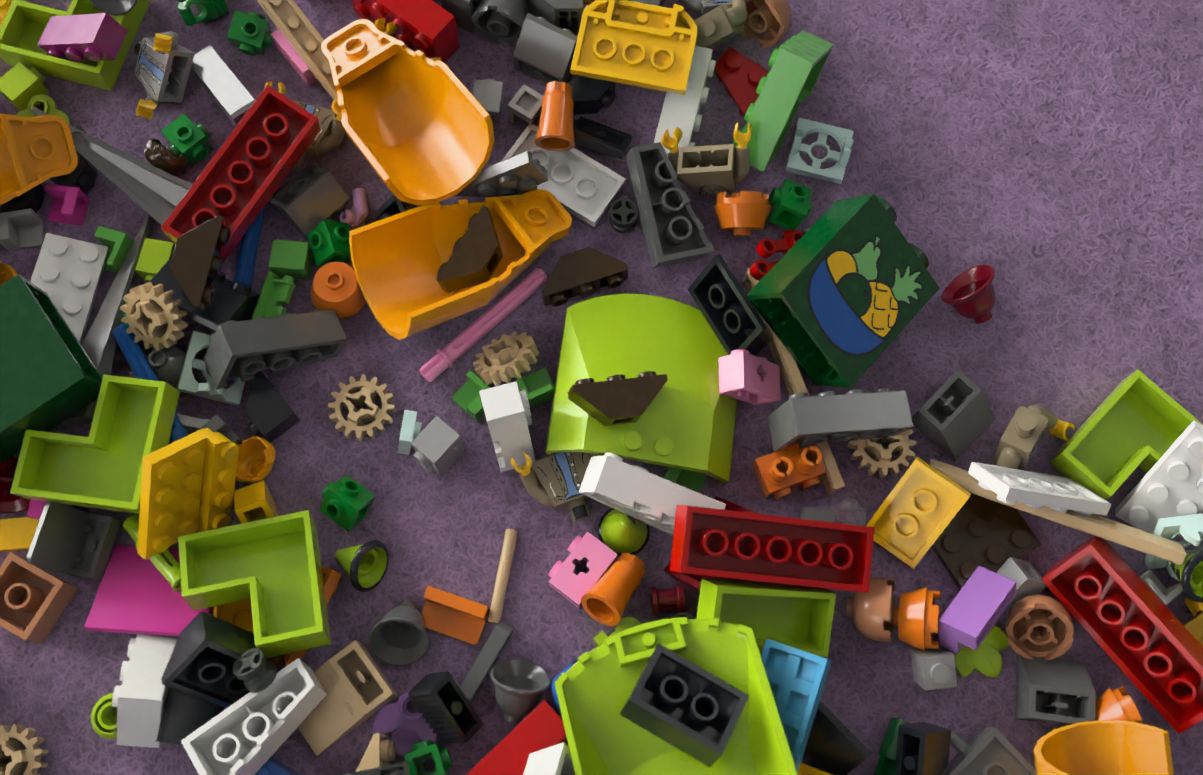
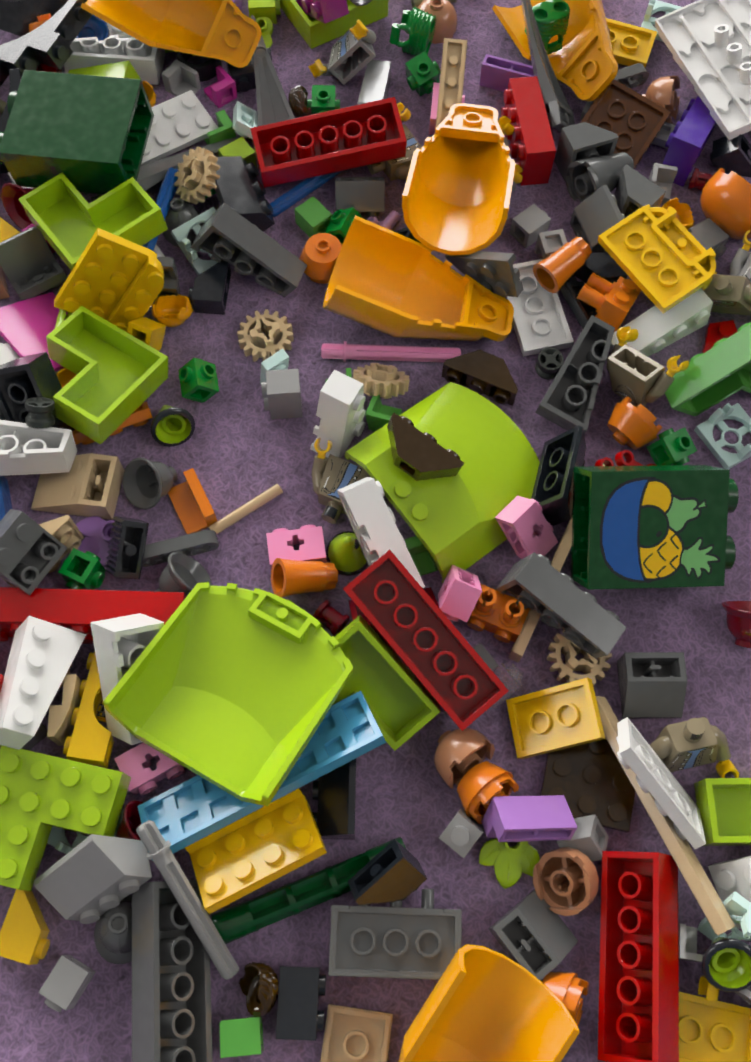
camera: 45 degrees right, 5 degrees down
(129, 218) = (244, 119): none -> light aqua plate
(198, 260) = (251, 162): dark brown slope -> none
(273, 295) = (283, 228): bright green hinge -> none
(473, 255) = (426, 300): dark brown slope -> none
(630, 115) = (609, 299): none -> orange brick
(685, 705) = (259, 672): black slope -> none
(755, 483) = (459, 594): none -> bright pink brick

